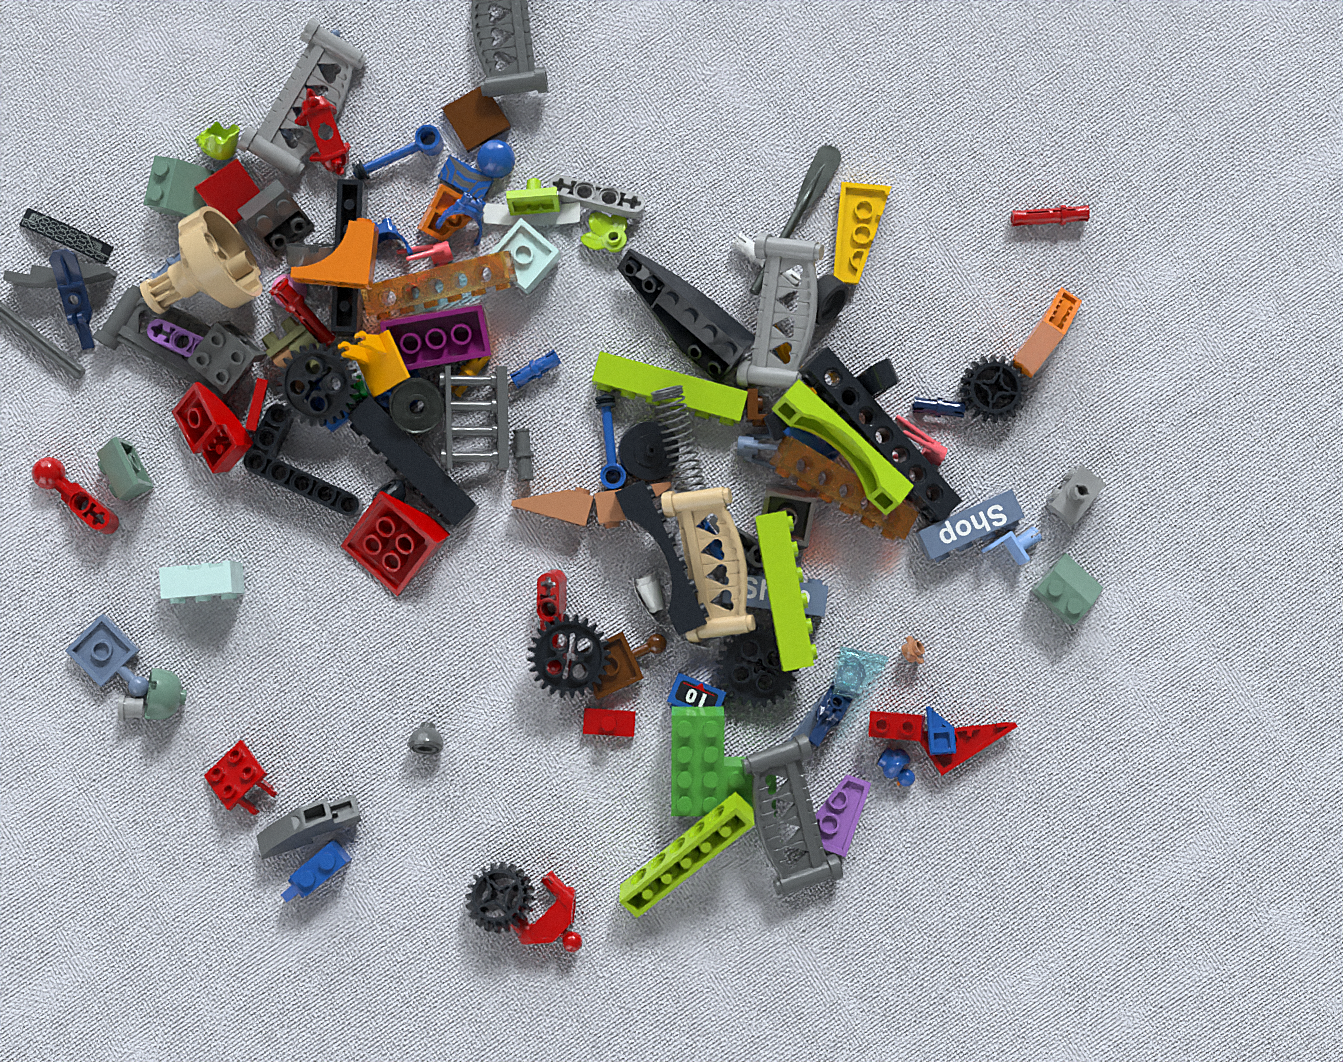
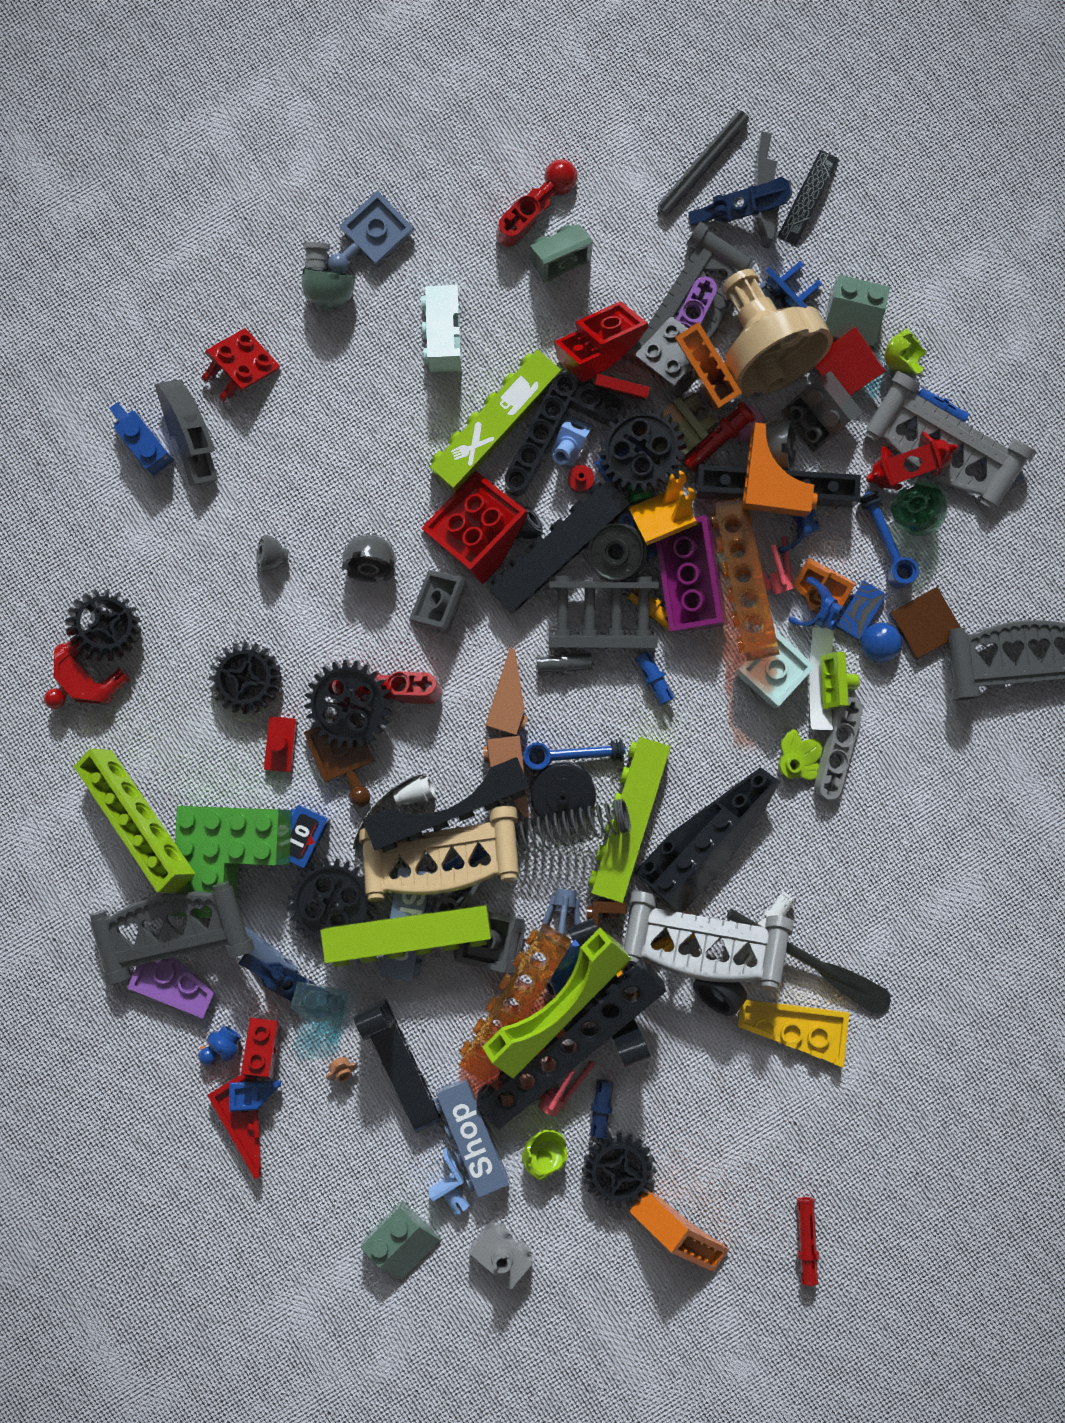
camera: 90 degrees right, 0 degrees up
(154, 261) = (778, 285): none -> blue plate
(243, 319) = (708, 366): none -> orange arch
(266, 104) = (944, 404): none -> blue pin
(291, 527) = (495, 421): none -> lime brick
(310, 455) = (570, 441): none -> light blue bracket
(350, 449) = (577, 484): none -> red tile
(368, 124) = (919, 509): none -> clear green cylinder
(427, 643) = (369, 558): none -> dark grey cylinder
(467, 576) = (438, 600): none -> dark grey slope
(540, 779) = (248, 666): none -> black gear
(906, 595) = (382, 1027): none -> black beam
(982, 457) = (544, 1154): none -> lime hair

